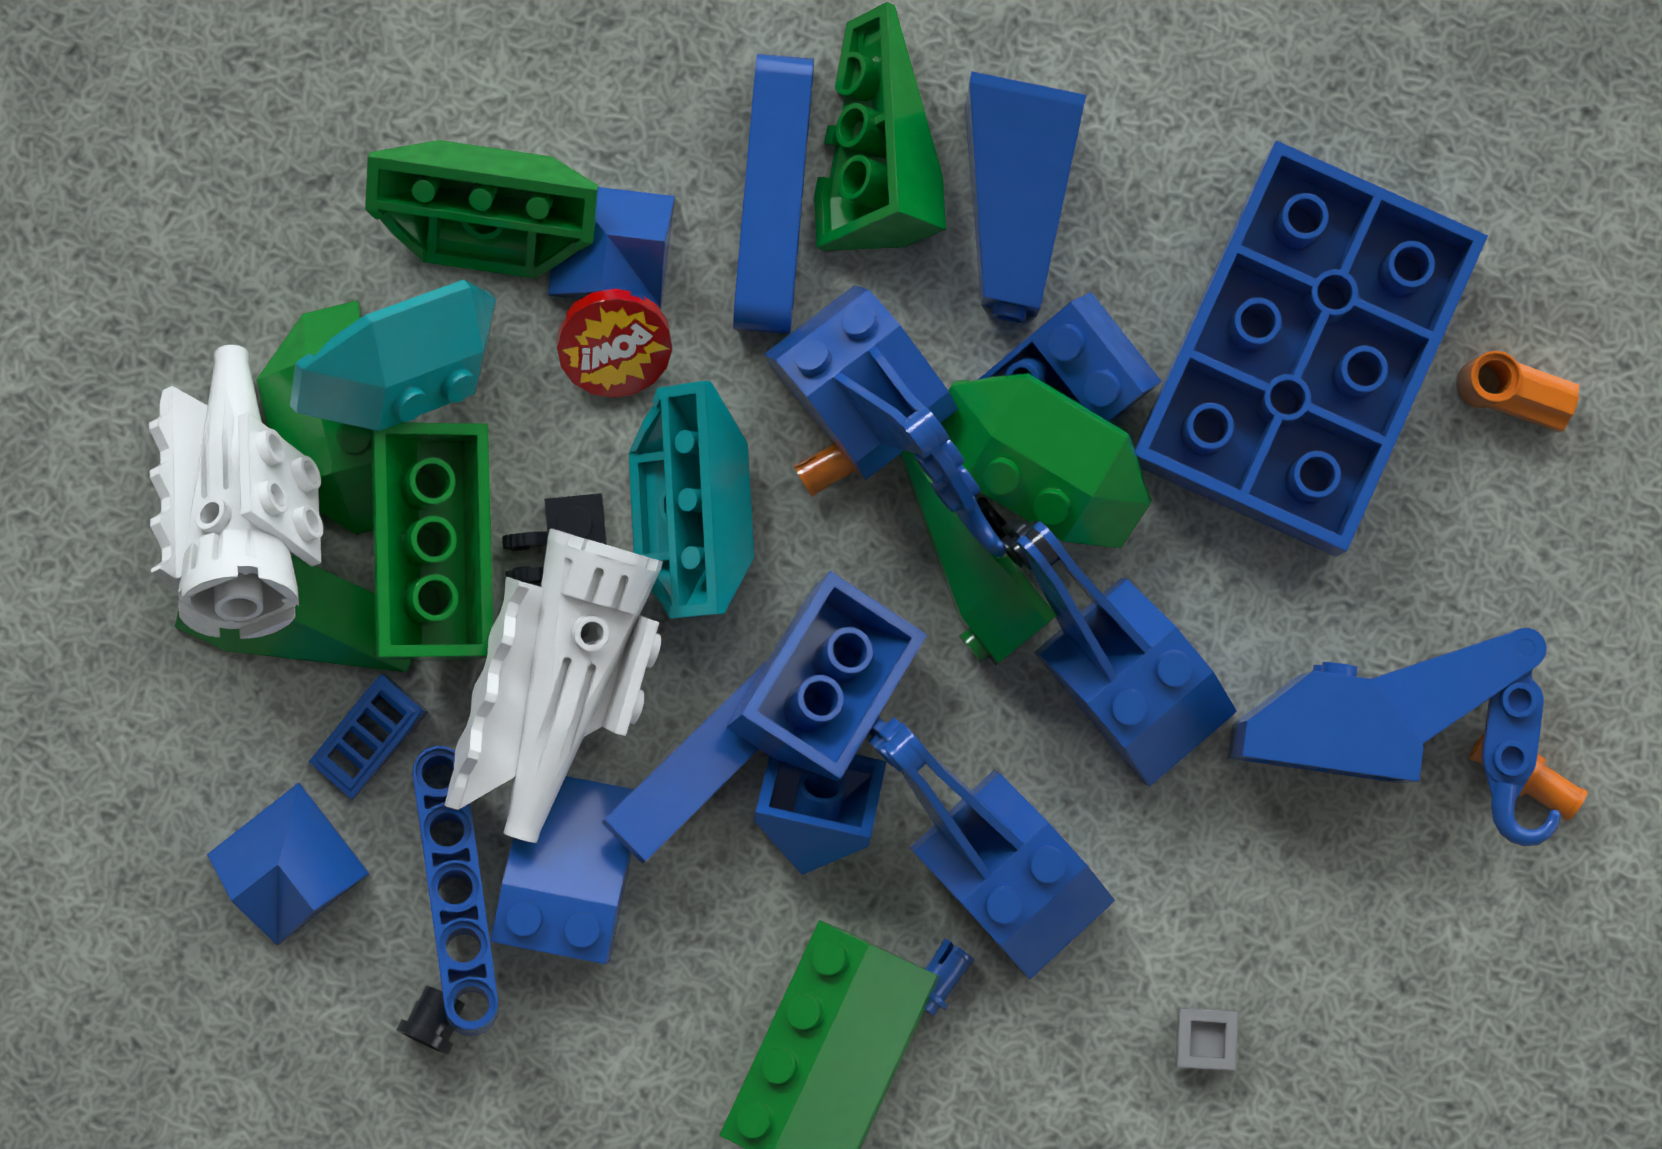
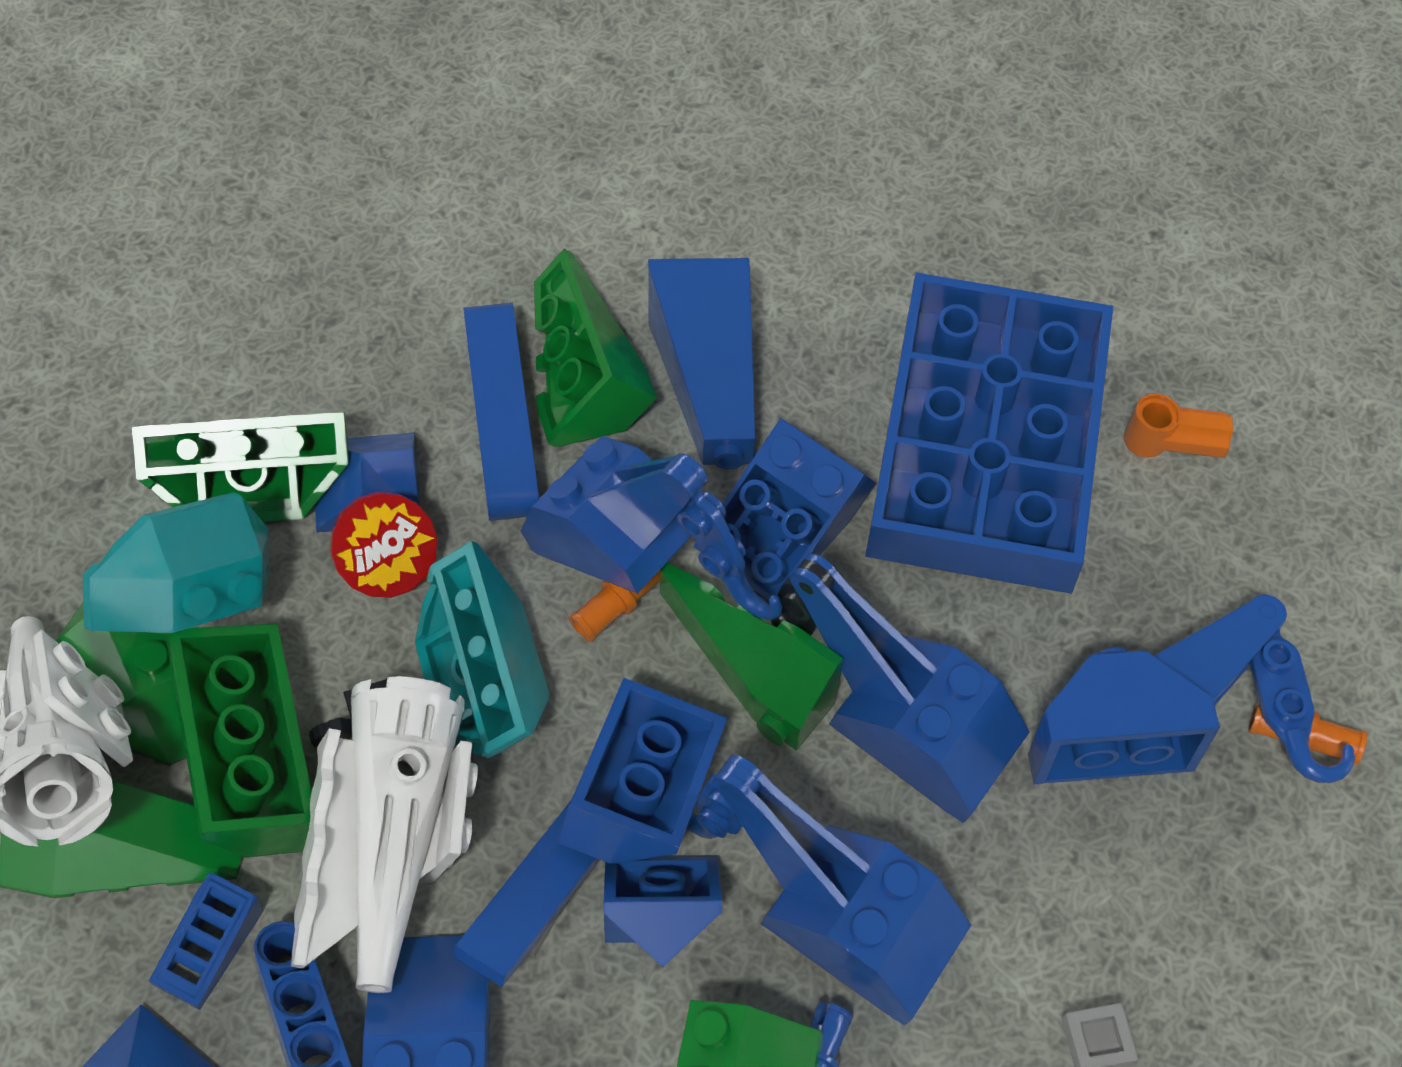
camera: 15 degrees left, 25 degrees down
(1048, 458) = (788, 521): green wedge -> none

